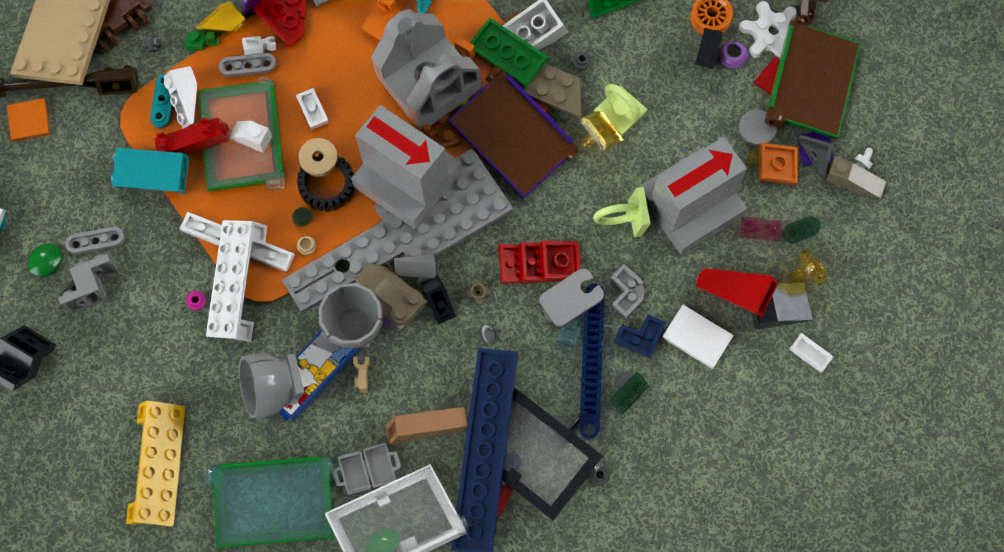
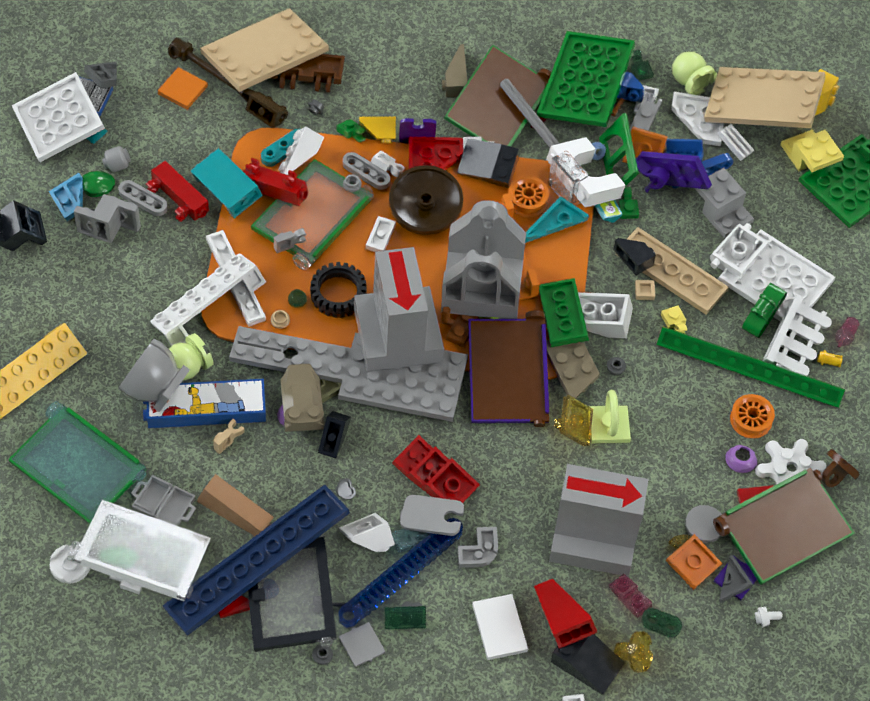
camera: 40 degrees right, 15 degrees down
(35, 292) = (69, 195): none -> dark azure wing
(40, 227) = (116, 159): none -> light grey head
(118, 209) = (180, 191): none -> red brick
(196, 306) = (167, 297): dark pink plate -> none
(249, 81) = (352, 179): none -> light grey plate
(250, 178) = (287, 240): none -> light grey plate
(251, 135) = (318, 216): white slope -> none
(271, 338) = (191, 355): none -> yellowish green tile
(313, 147) = (348, 256): tan tile -> none
(315, 34) = (426, 199): none -> dark brown dish
(350, 317) = (253, 382): light grey plate -> none
(416, 266) = (340, 395): light grey slope -> none
(477, 286) = (369, 450): dark tan plate -> none
(540, 352) = (369, 532): none -> white slope
(617, 441) = (362, 644): none -> light grey piece
(635, 210) = (541, 496): yellowish green tile -> none
(642, 341) = (455, 593): dark blue plate -> none
(708, 48) = (722, 435): black slope -> none
(854, 178) = (744, 622): dark tan slope -> none

